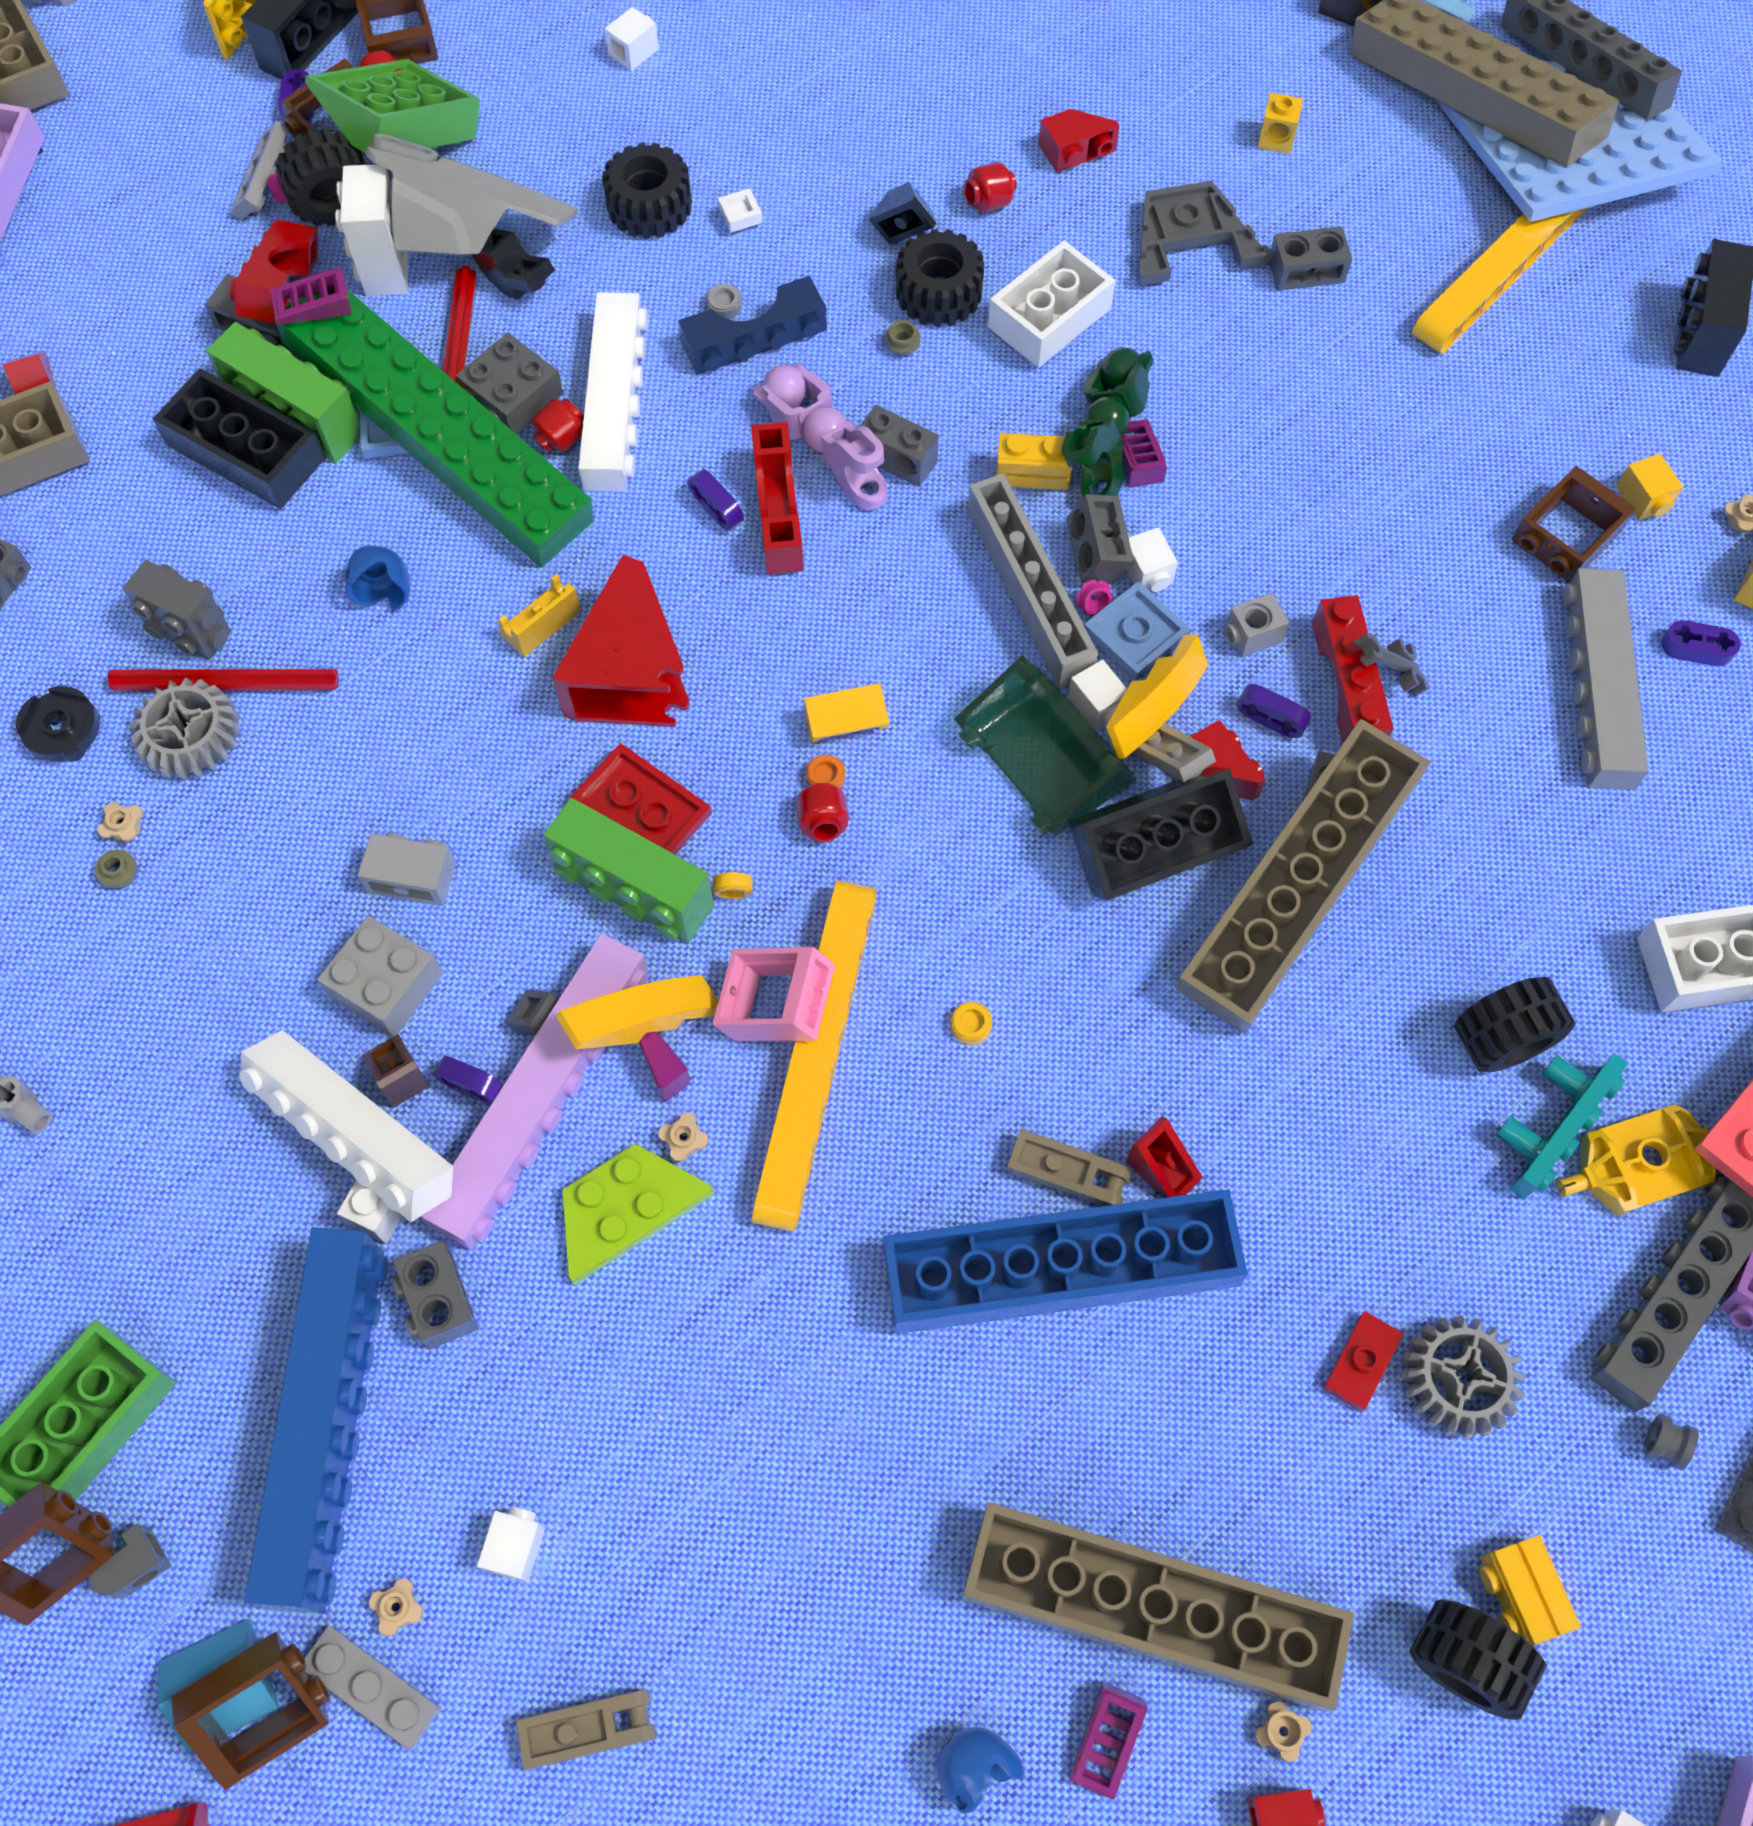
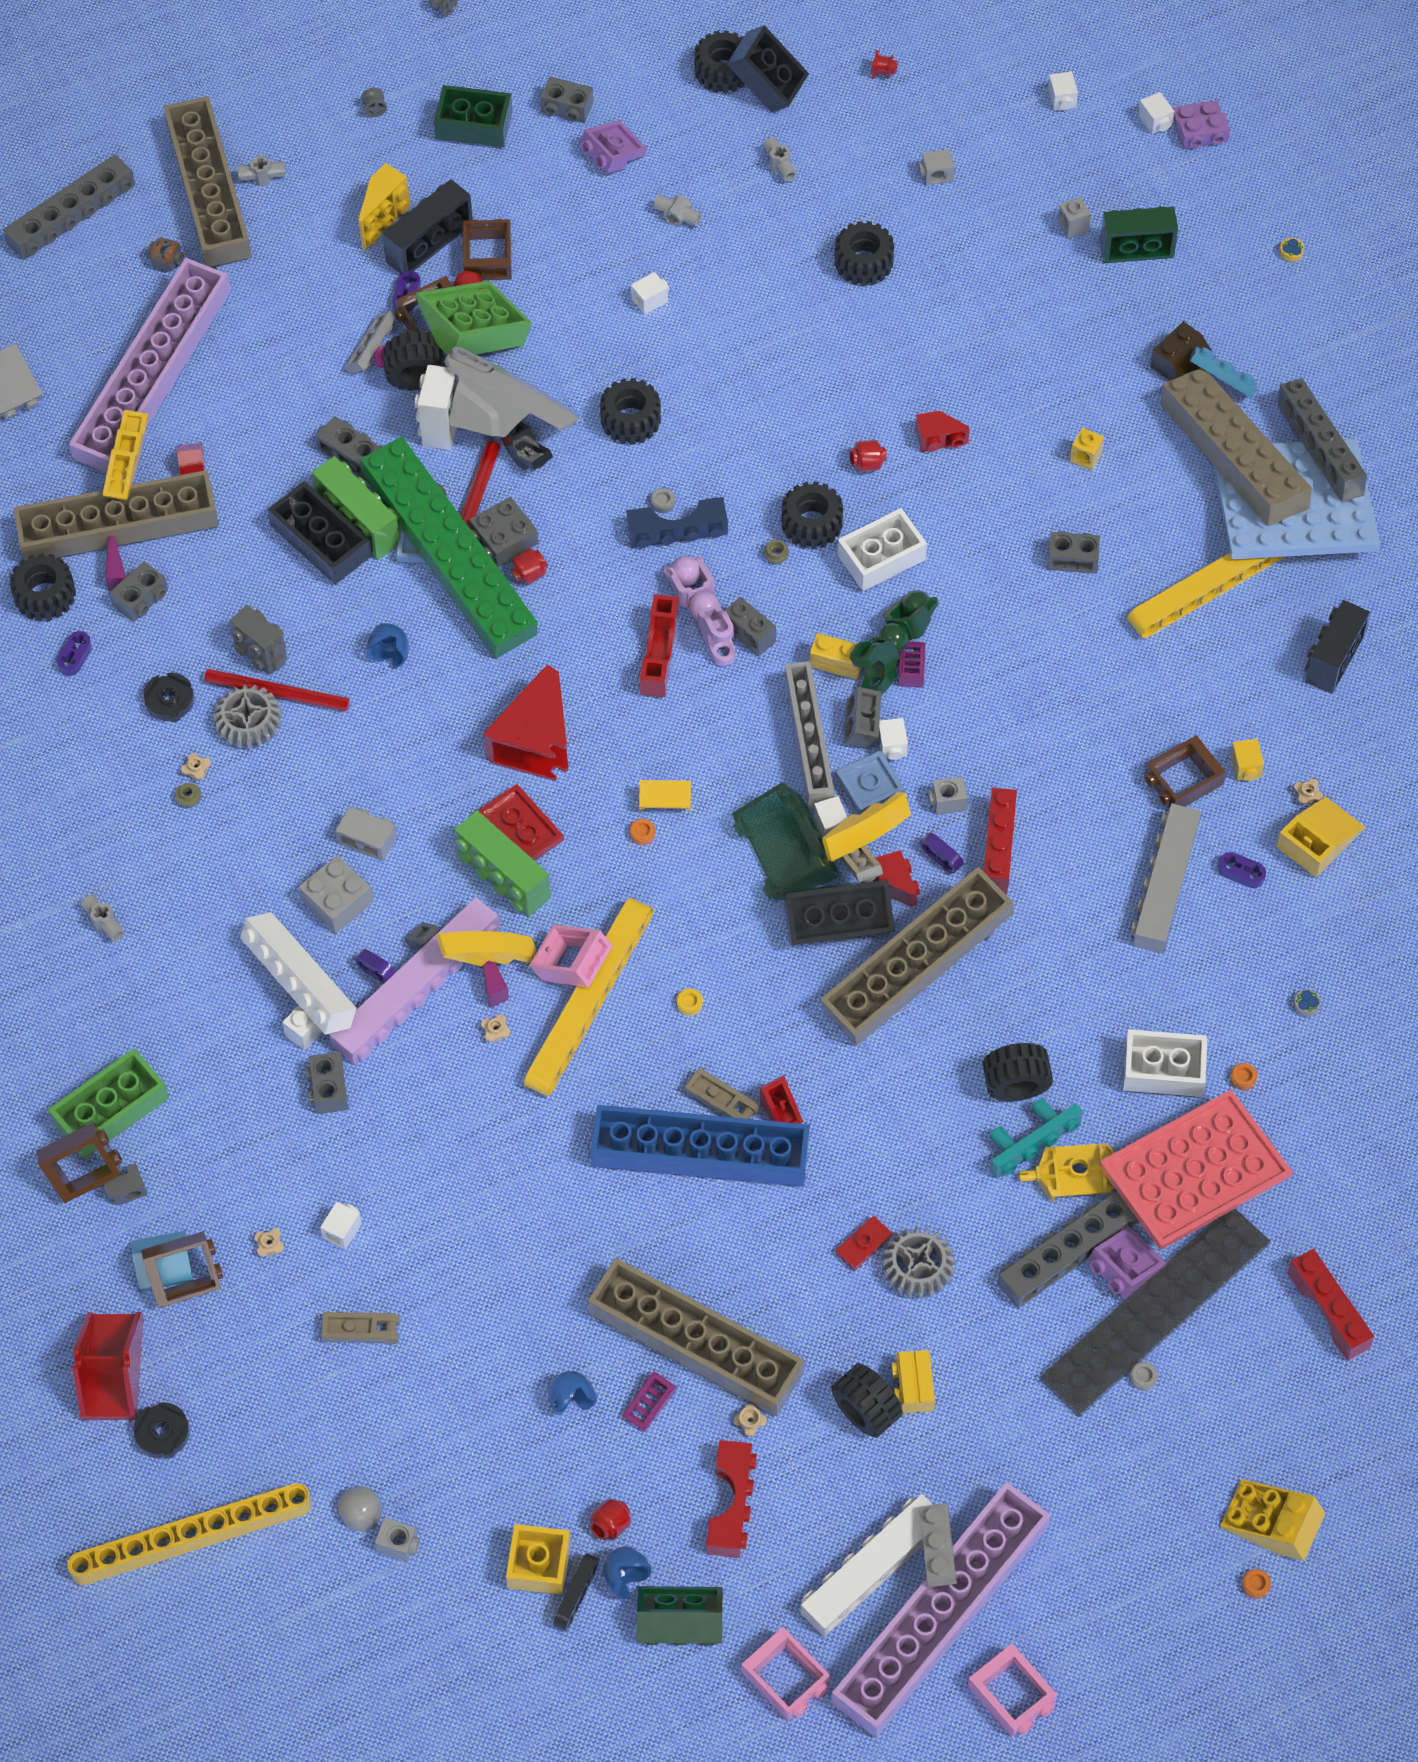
camera: 15 degrees right, 5 degrees down
(283, 252) = (357, 435): red arch -> none
(317, 1424) = (248, 1132): blue brick -> none
(325, 307) = (397, 460): magenta slope -> none
(371, 1688) = (247, 1281): light grey plate -> none
(395, 1071) = (333, 952): slope -> none
(541, 617) = (487, 692): yellow hinge -> none
(611, 392) = (570, 549): white brick -> none
(624, 1206) = (451, 1059): lime wing -> none
(715, 499) = (619, 637): dark purple beam -> none
(732, 885) = (564, 887): yellow tile -> none
(740, 210) = (691, 437): white plate -> none
(822, 812) = (632, 854): red head -> none
(902, 214) = (800, 464): black slope -> none
(1100, 601) = (849, 748): dark pink plate -> none
(1192, 218) = (999, 506): dark grey wing -> none
(1397, 658) = (1035, 837): dark grey bar -> none
(1671, 1441) = (1028, 1324): dark grey wheel -> none

